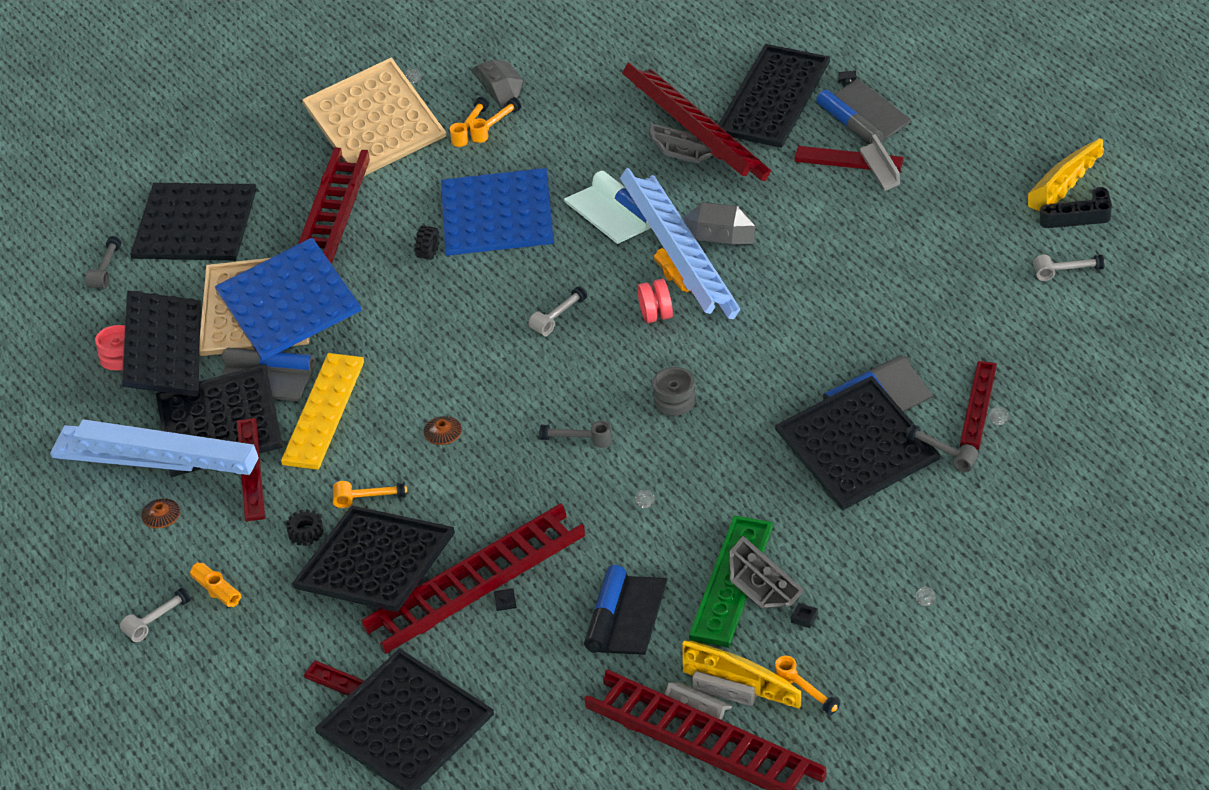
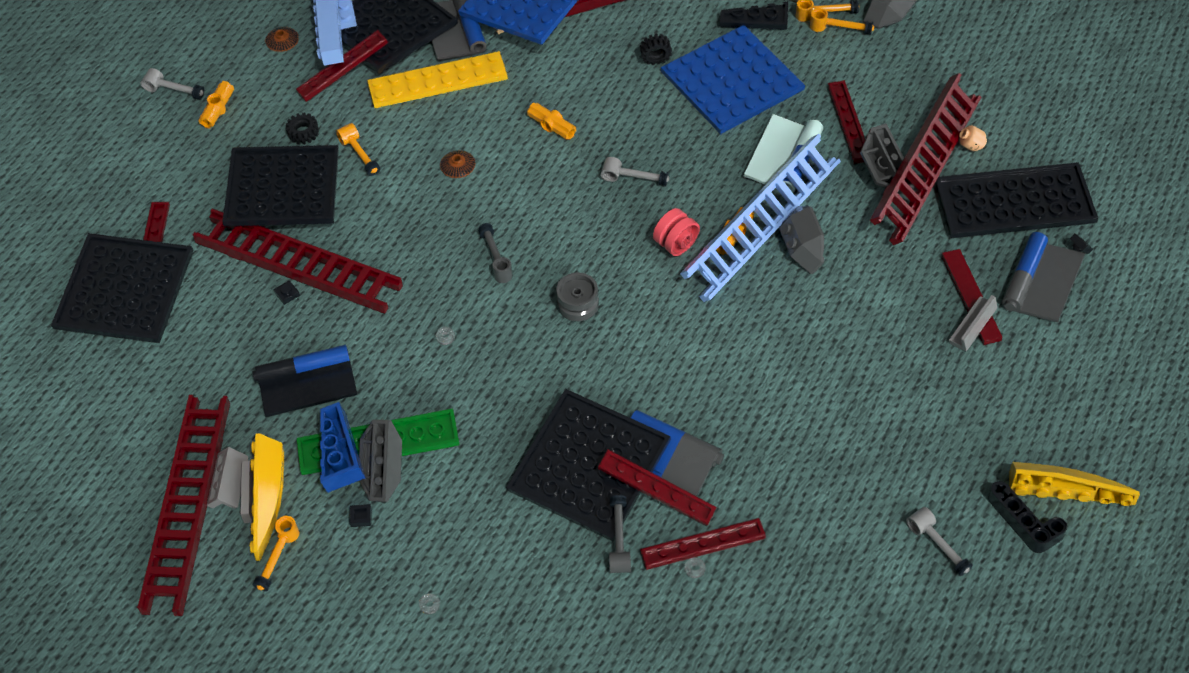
camera: 60 degrees right, 10 degrees up
(441, 166) = (760, 18): none -> black wing
(448, 344) = (551, 121): none -> light orange piece
(608, 158) = (847, 118): none -> dark red tile
(693, 90) = (972, 138): none -> light nougat head
(731, 597) = (339, 453): none -> blue wedge
(913, 405) = (657, 487): none -> dark red tile

